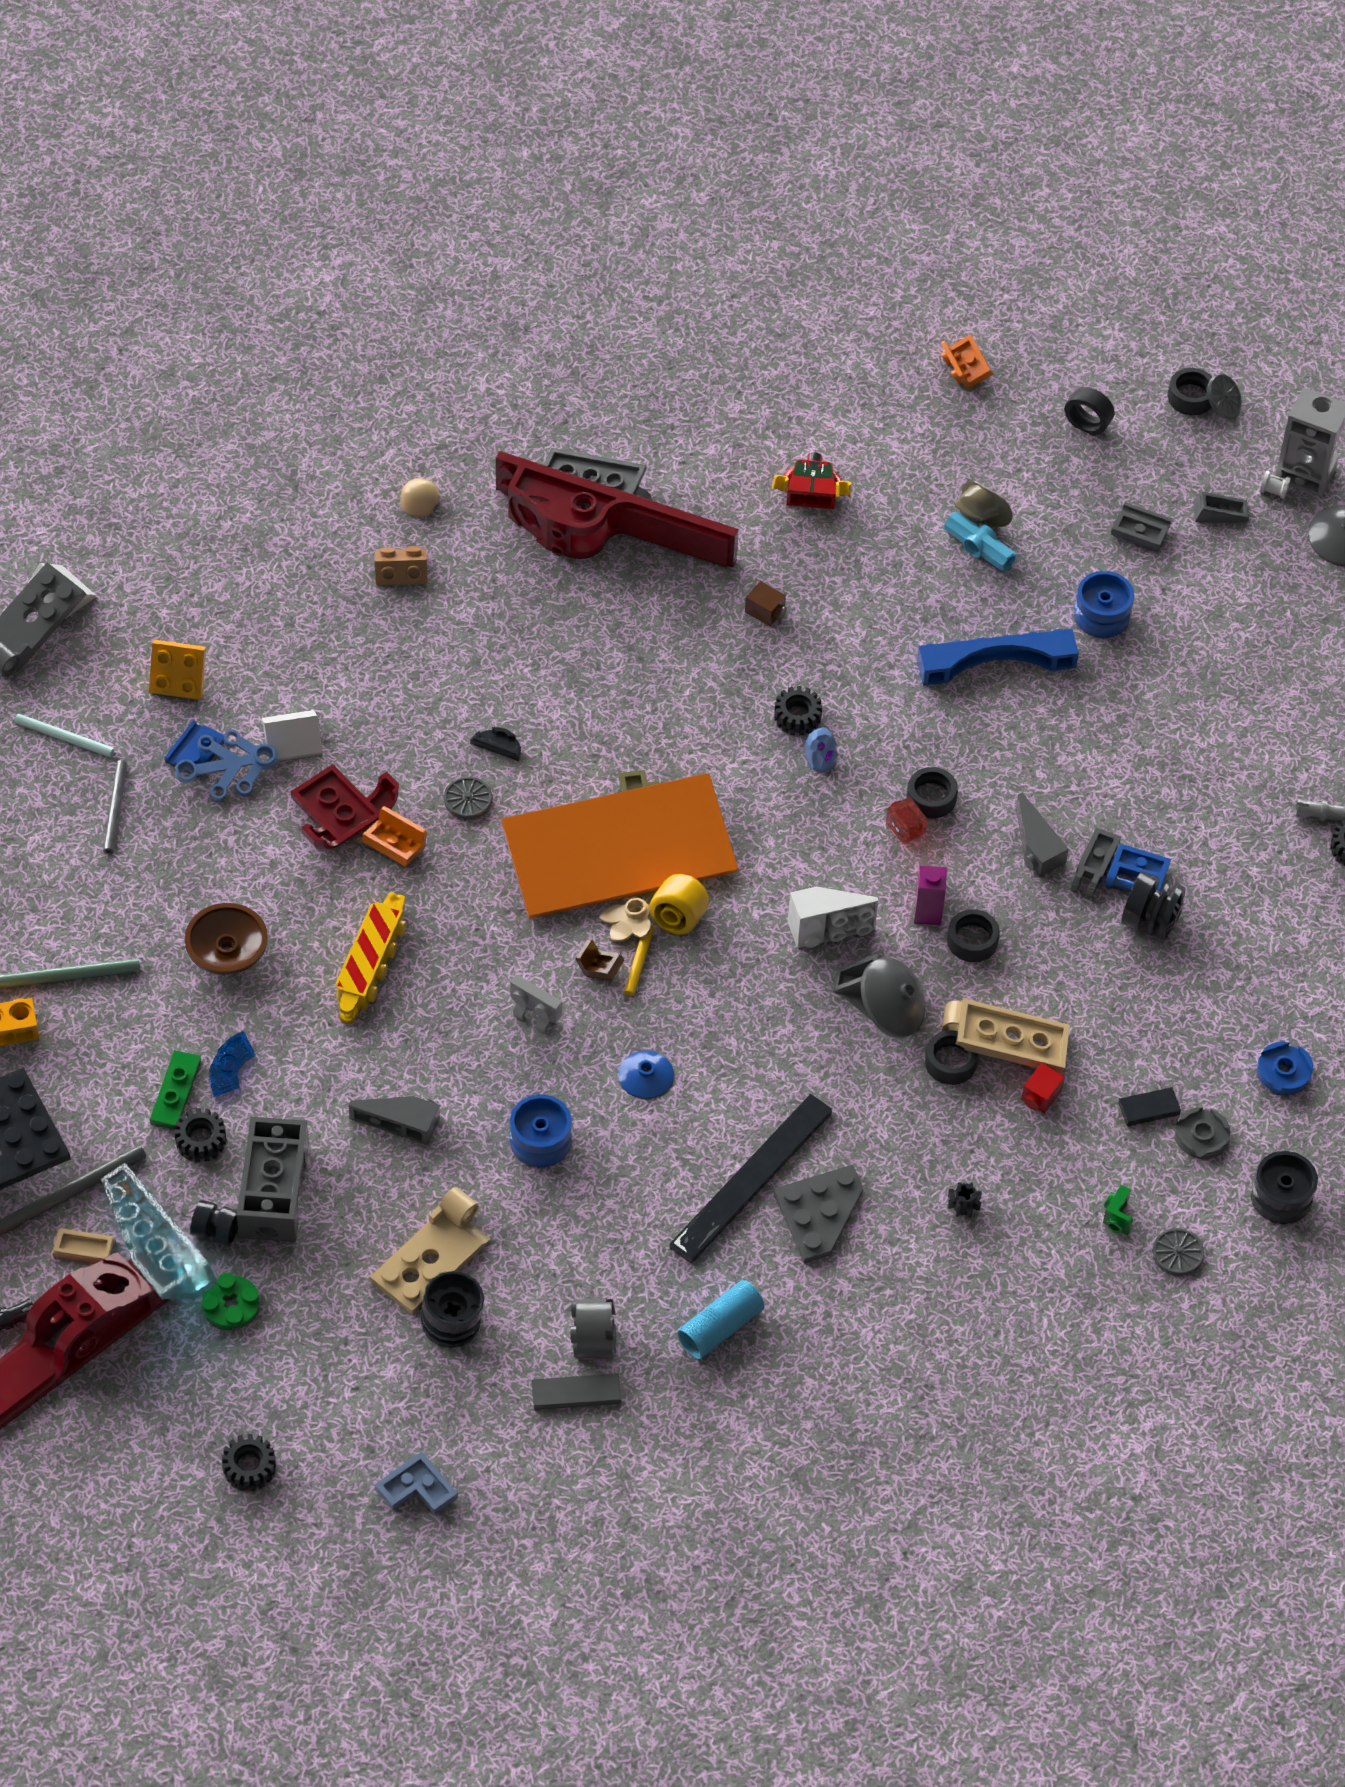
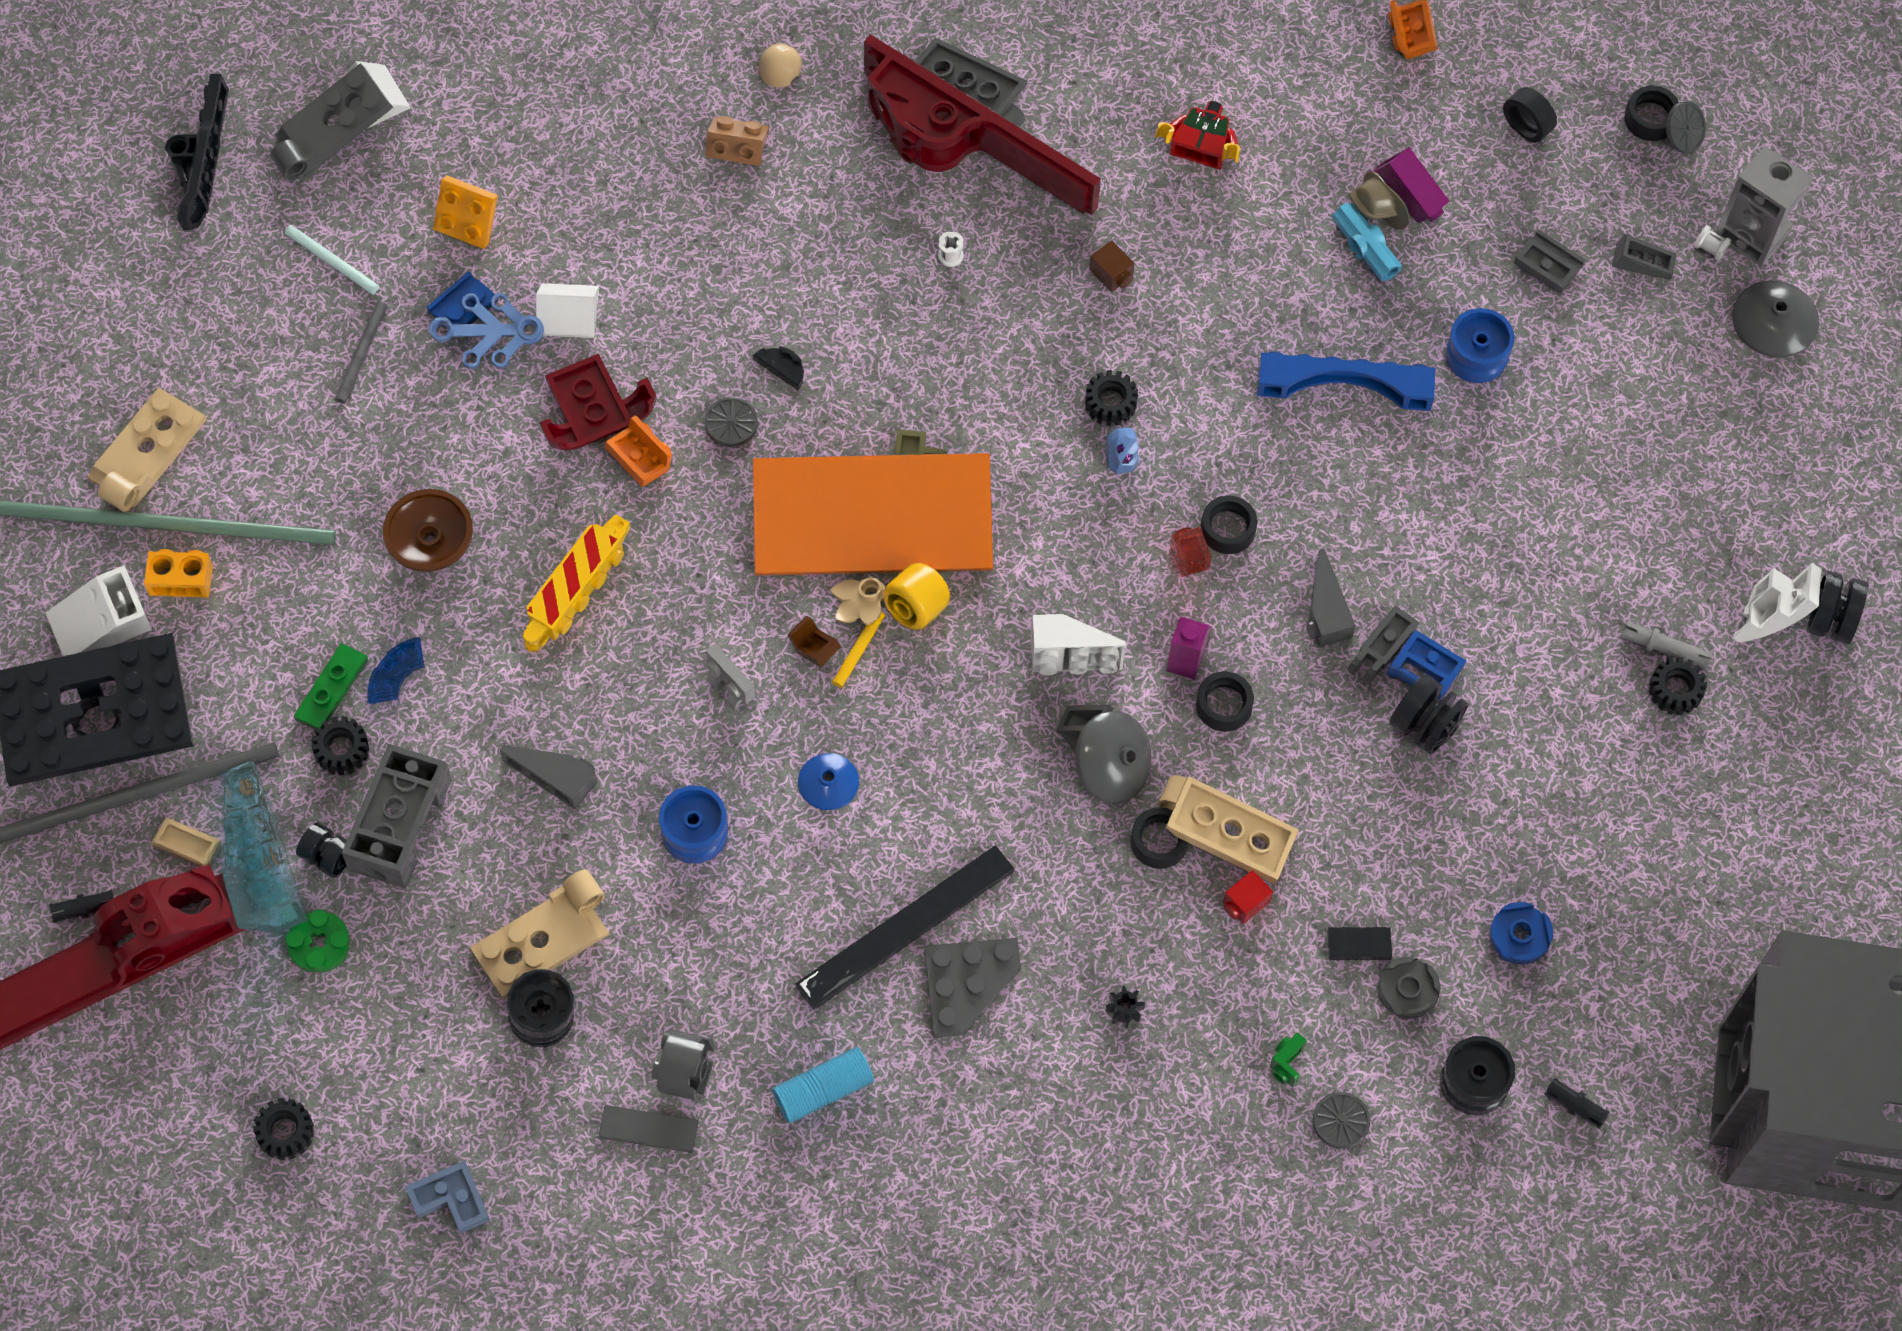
camera: 15 degrees right, 10 degrees up
(622, 619) = (950, 249): none -> white bush
(1010, 484) = (1413, 185): none -> magenta slope

